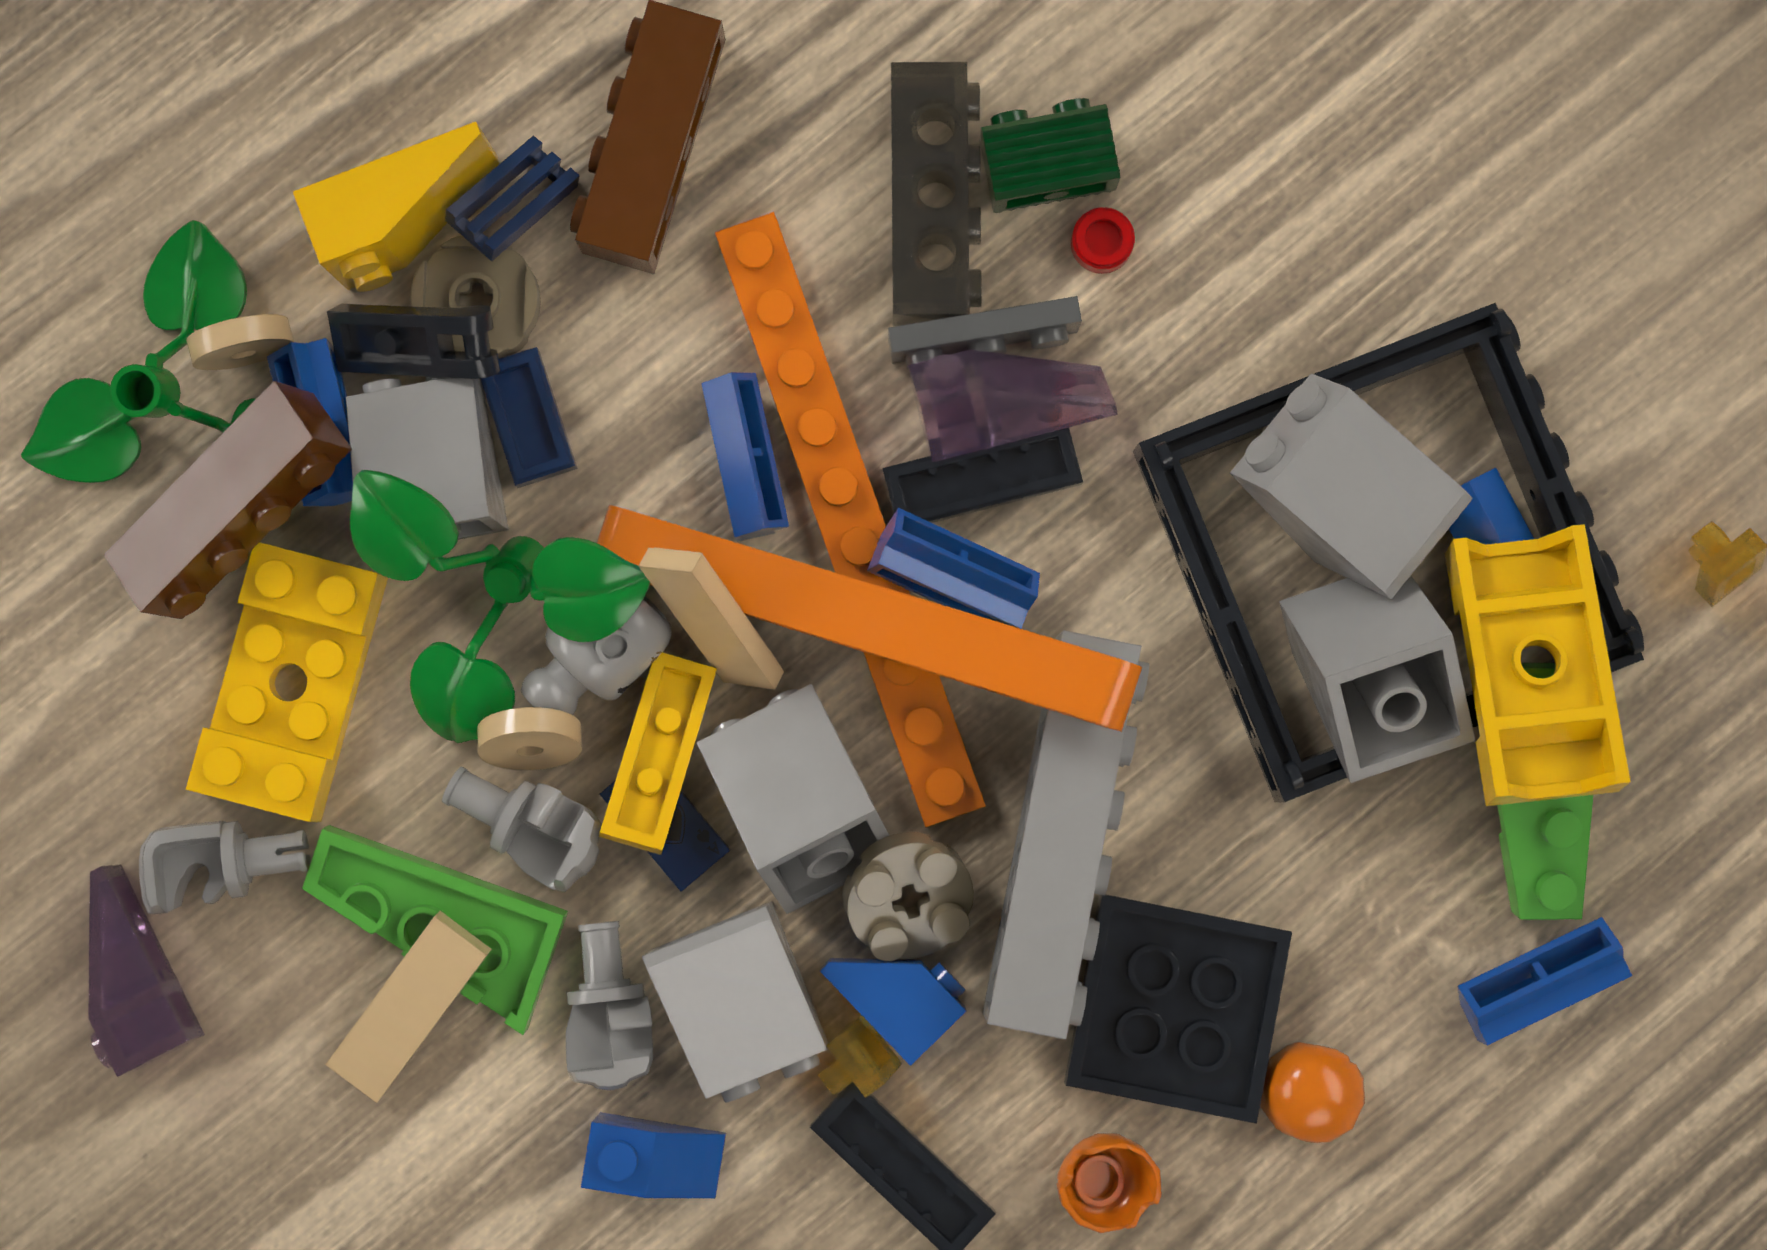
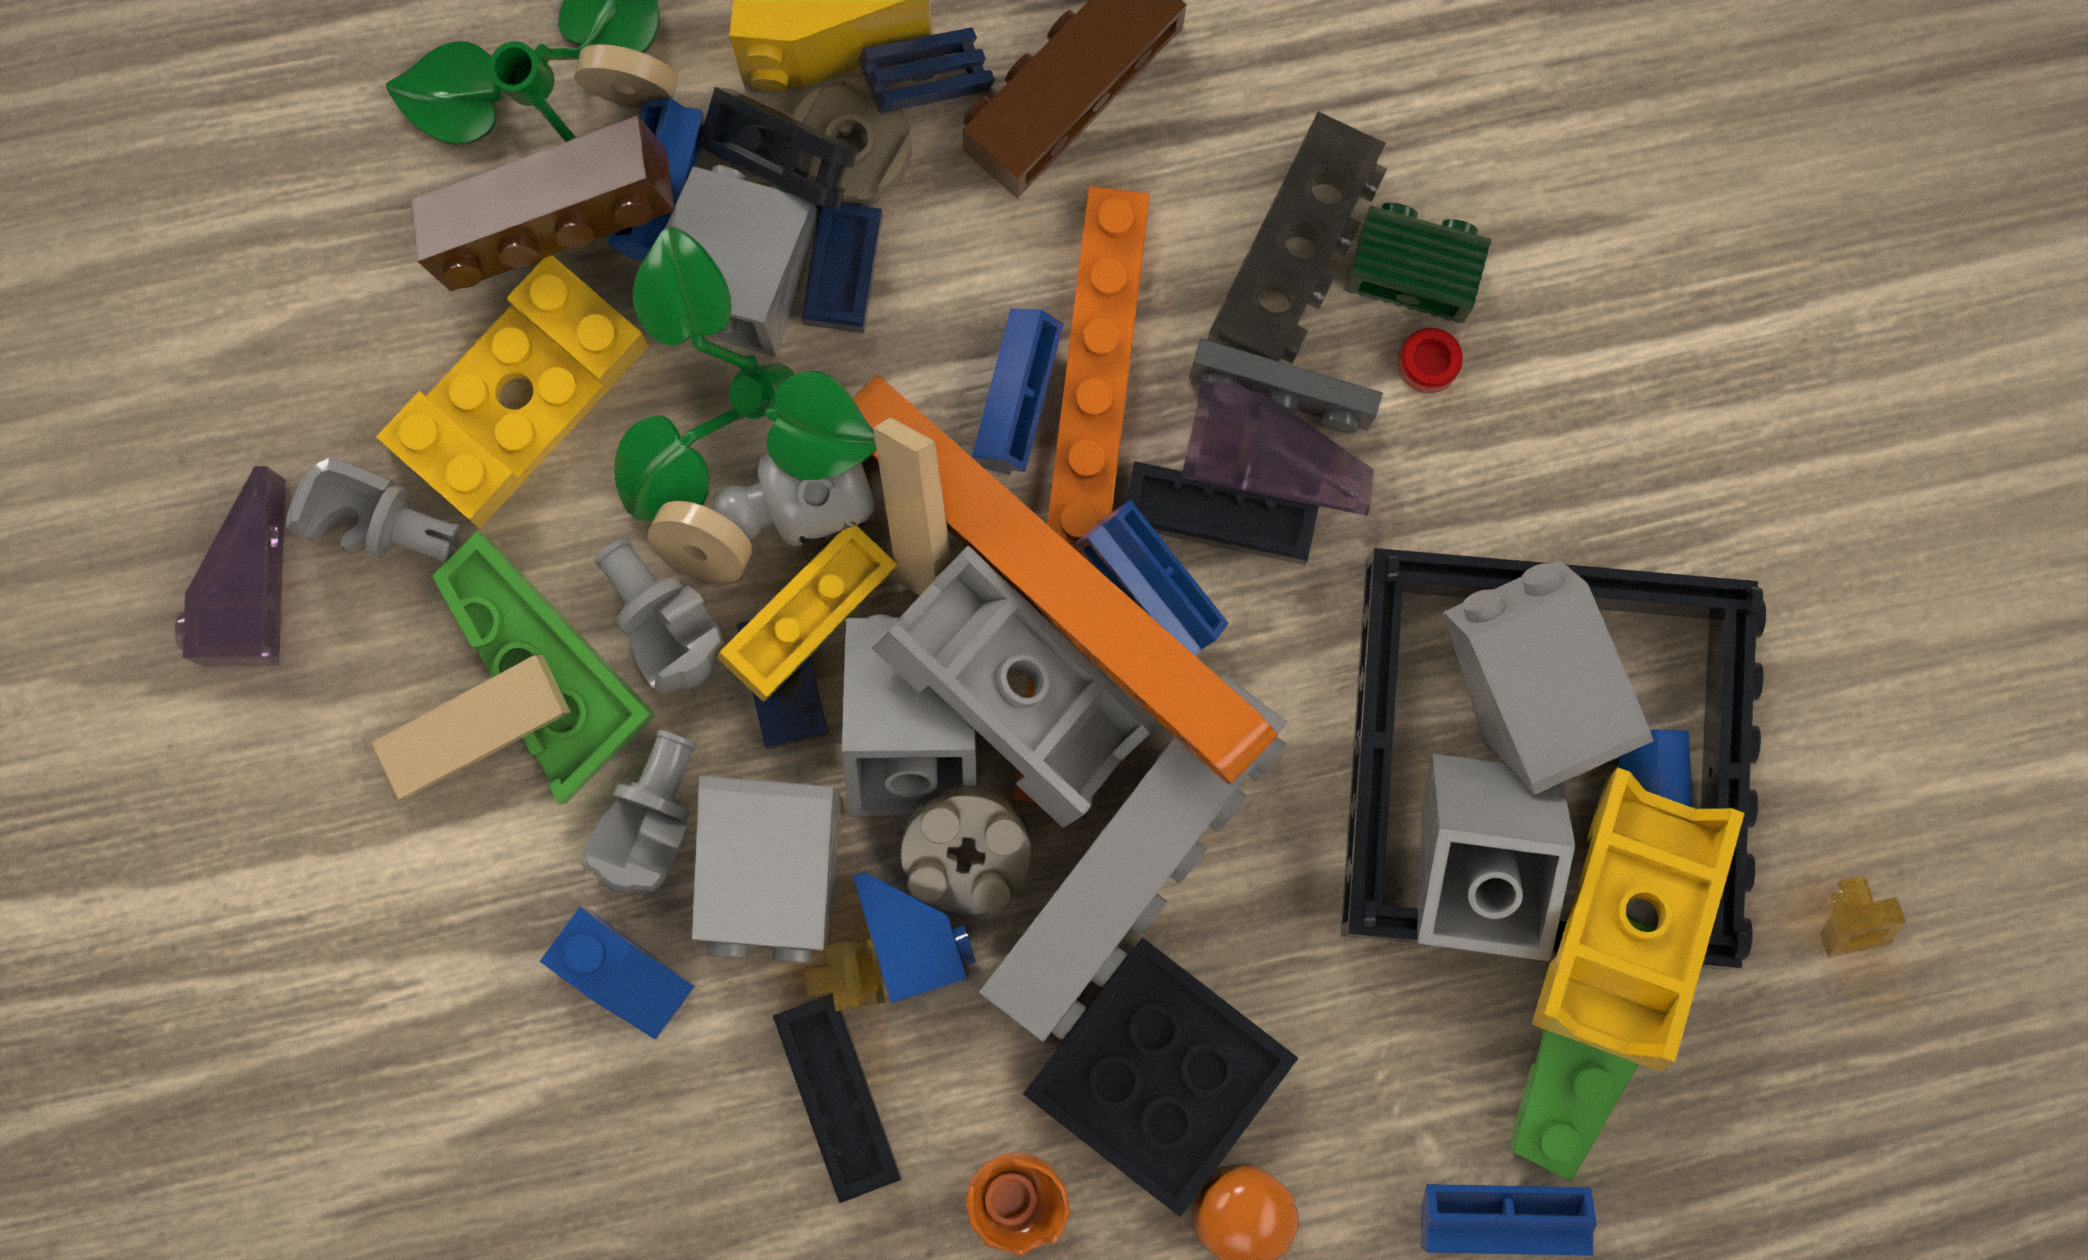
camera: 20 degrees right, 5 degrees down
(815, 716) = (961, 645): none -> light grey piece

